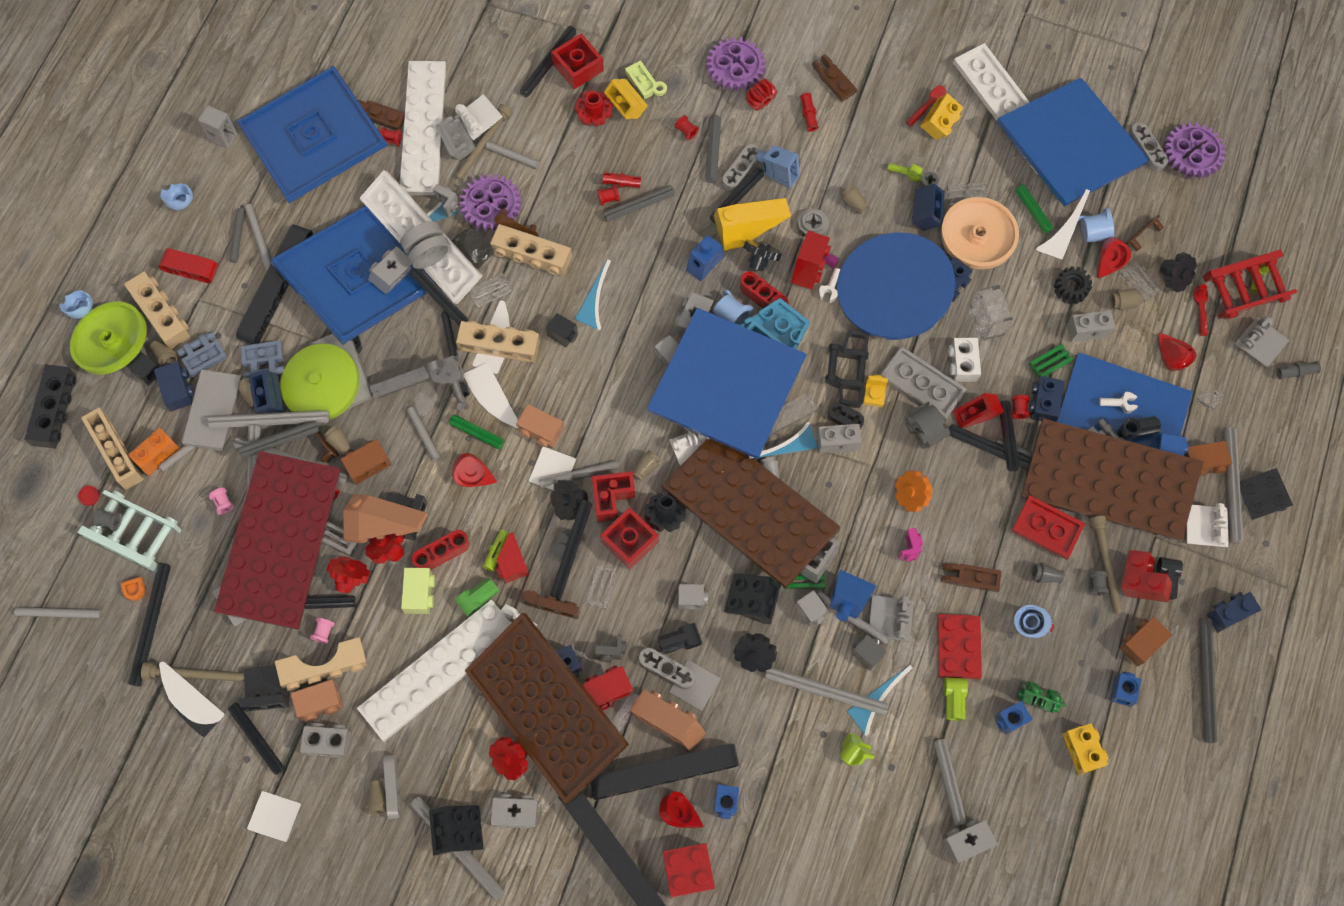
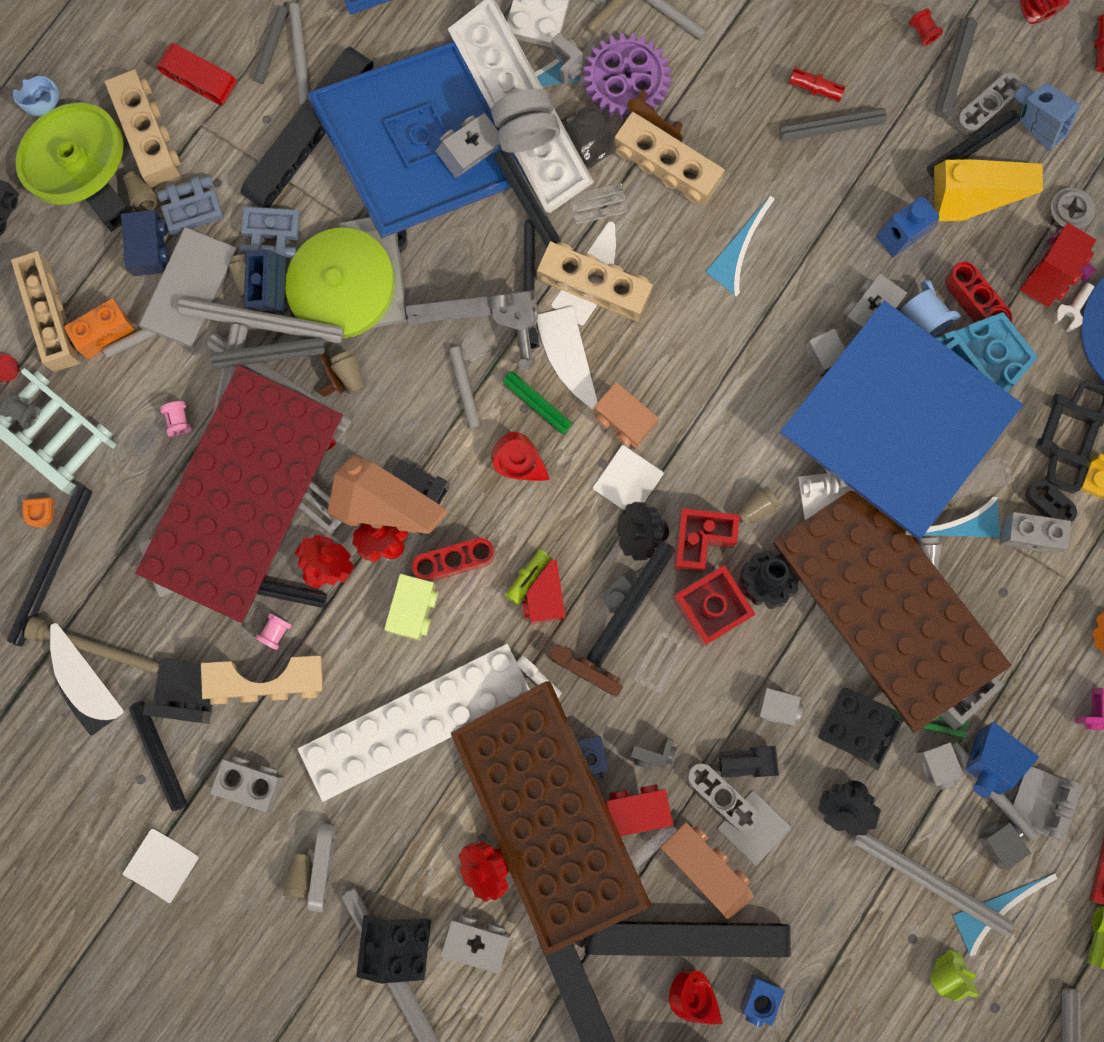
camera: 15 degrees right, 10 degrees up
(317, 700) = (247, 725): nougat brick -> none
(365, 461) = (379, 409): dark orange brick -> none
(473, 599) = (483, 638): bright green piece -> none
(562, 330) = (686, 285): black brick -> none
(580, 473) = (663, 495): light grey bar -> none
(608, 195) = (792, 103): red bush -> none
(761, 254) = (989, 239): black plant -> none

